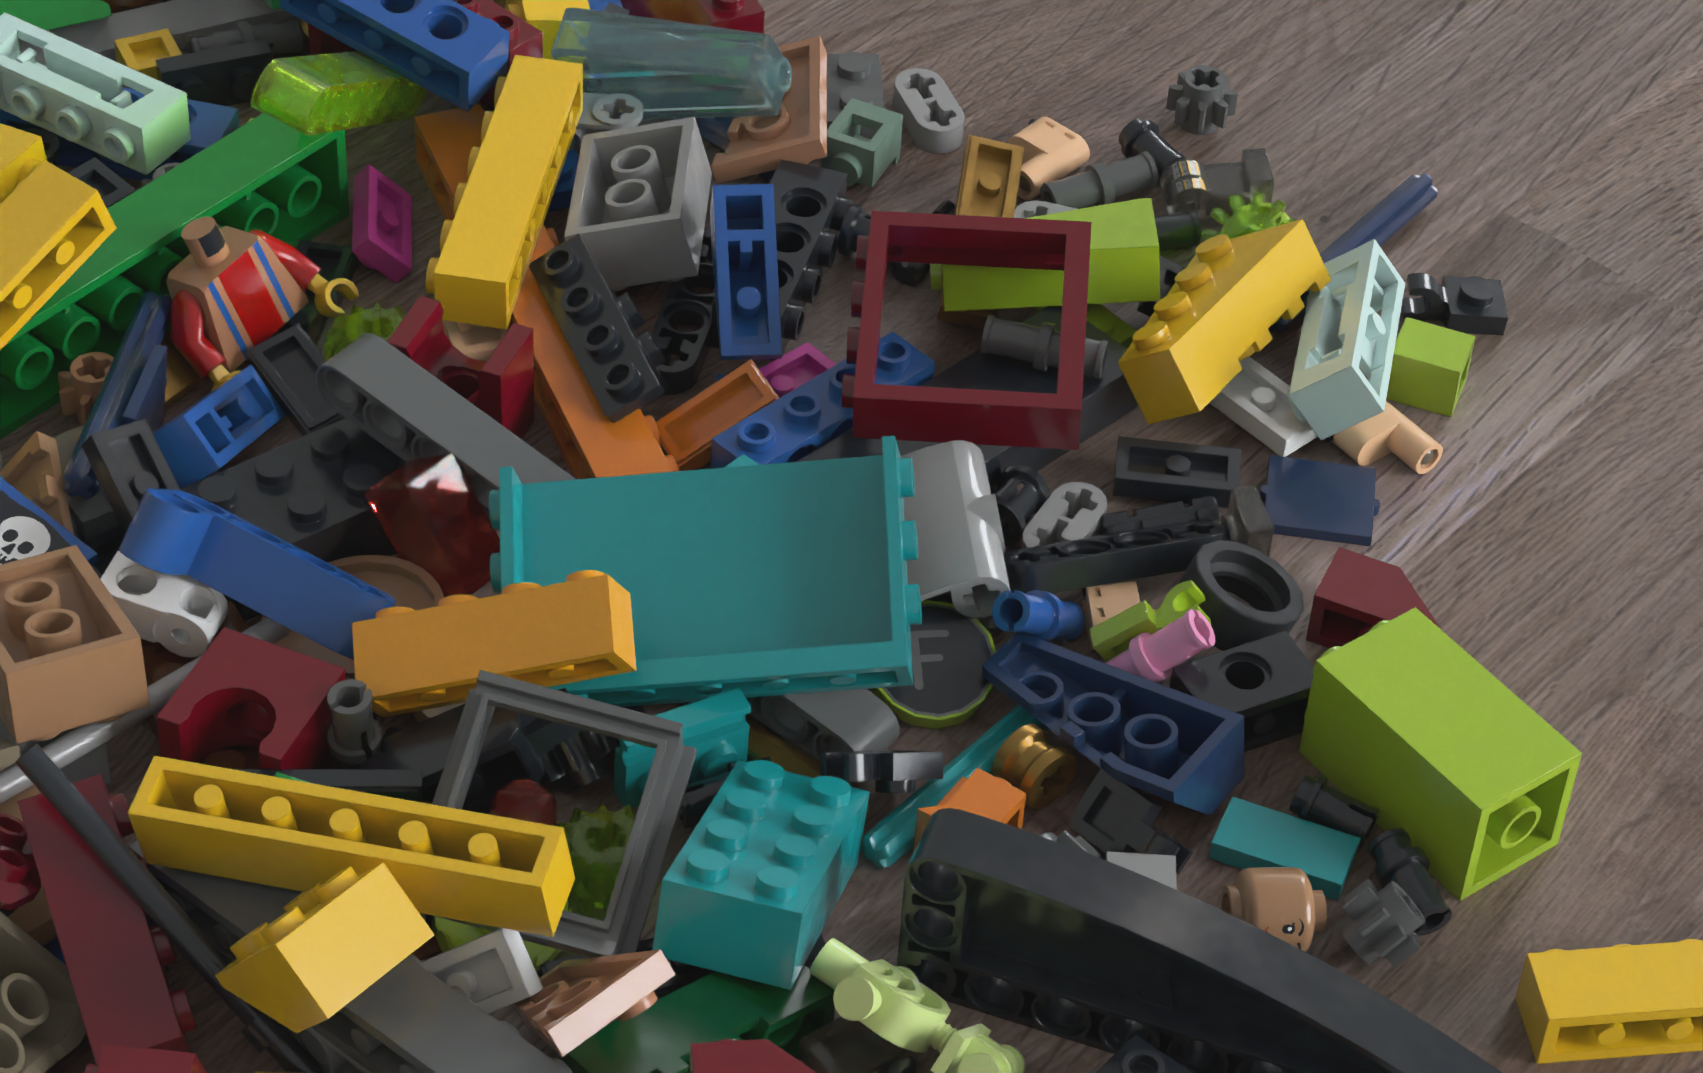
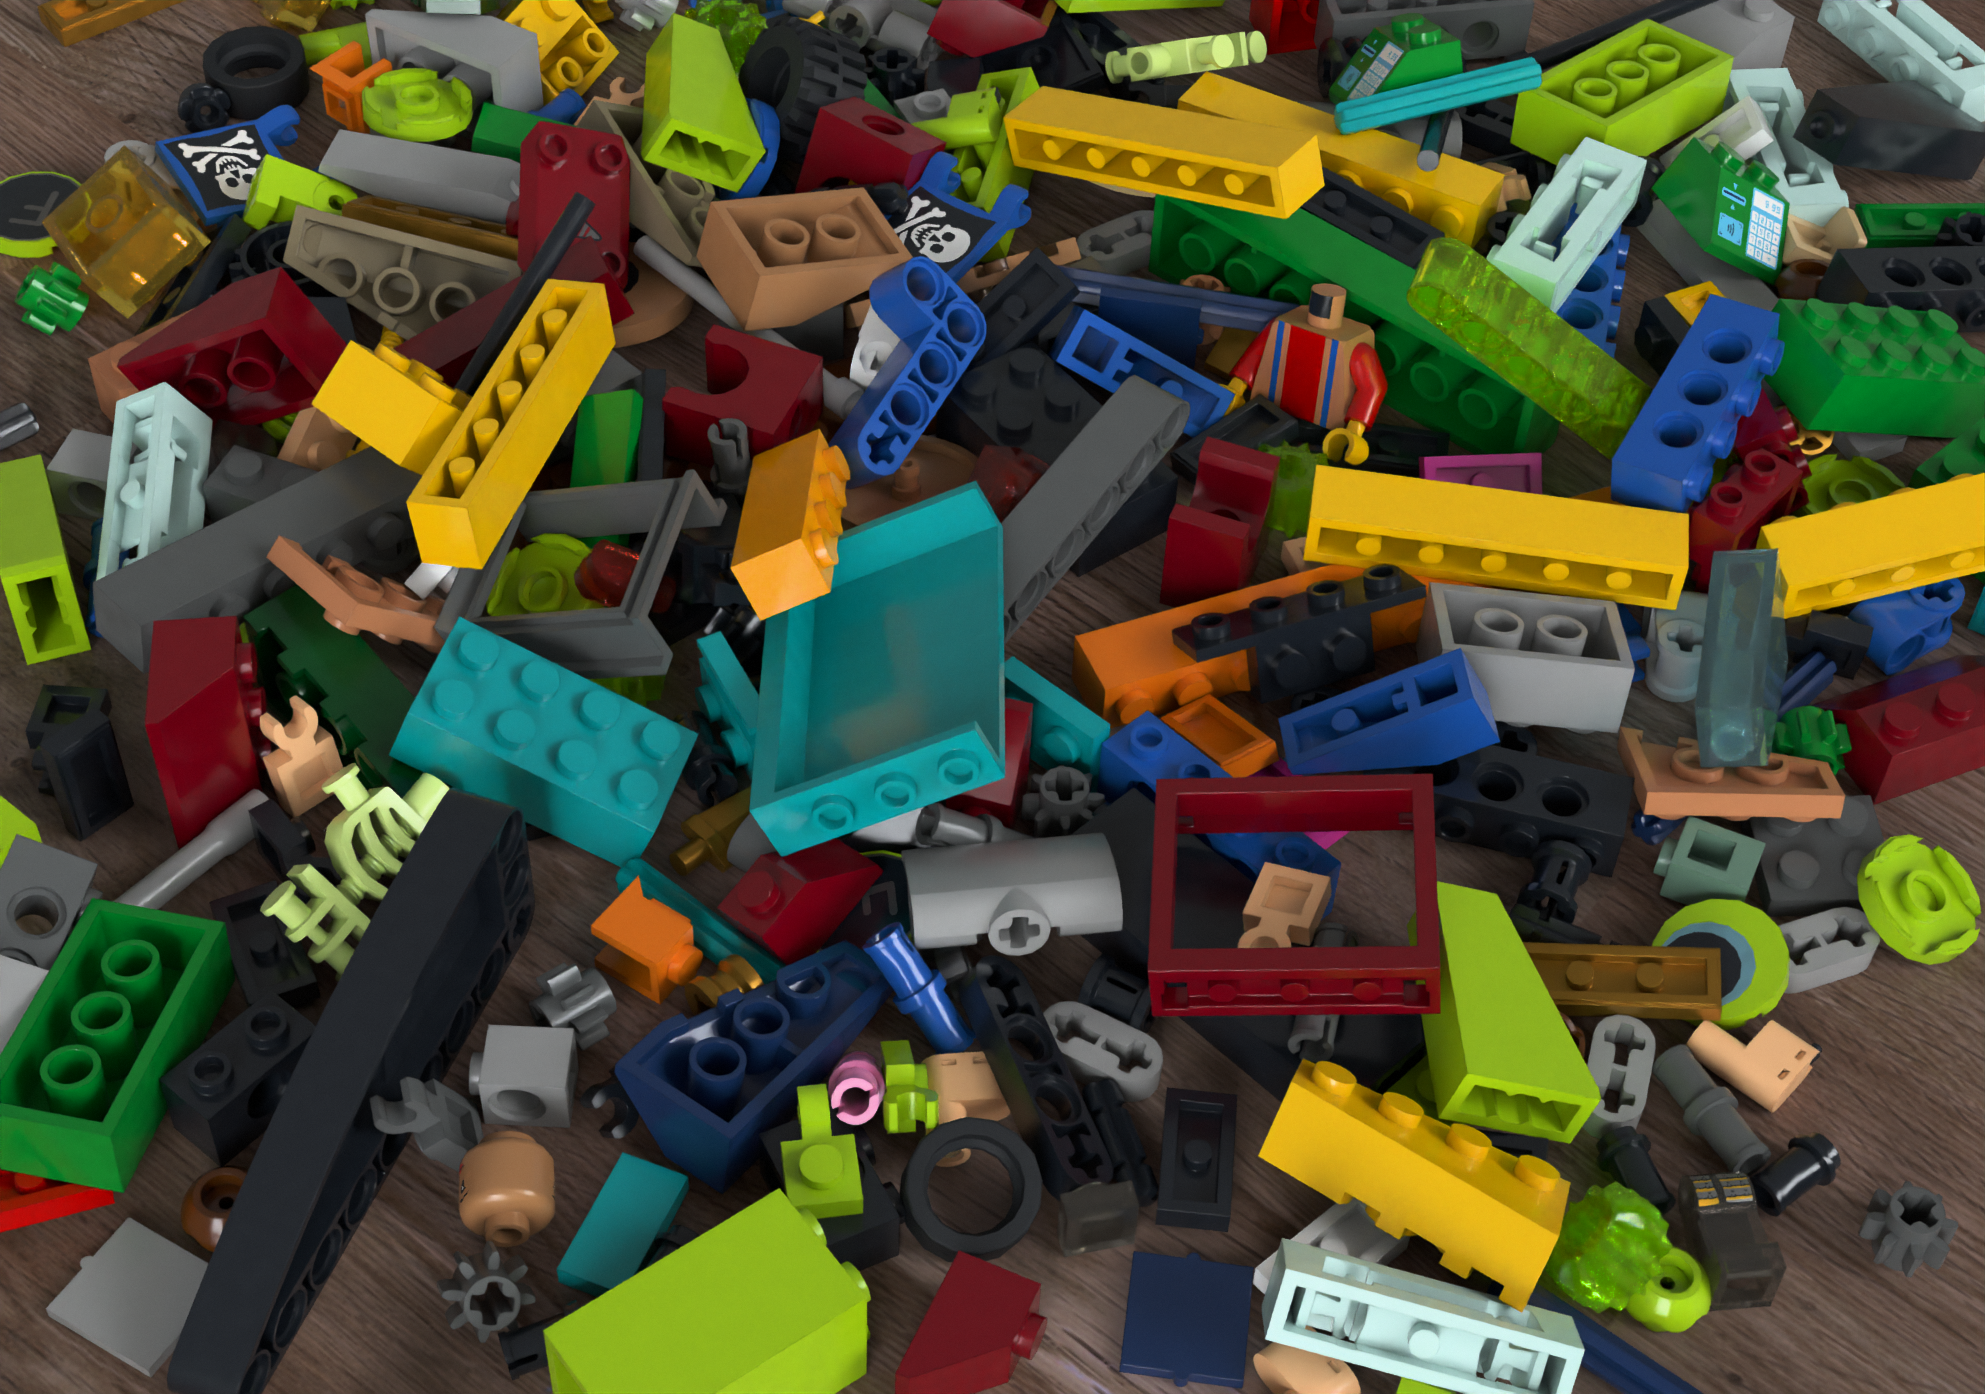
camera: 90 degrees right, 5 degrees up
(879, 42) = (1918, 900): none -> lime tile
(891, 769) = (704, 858): black plate -> none
(937, 144) = (1751, 954): none -> lime tile
(946, 703) = (799, 898): none -> dark red slope
(966, 359) = (1284, 907): none -> light nougat plate
(1250, 665) = (821, 1168): none -> lime plate

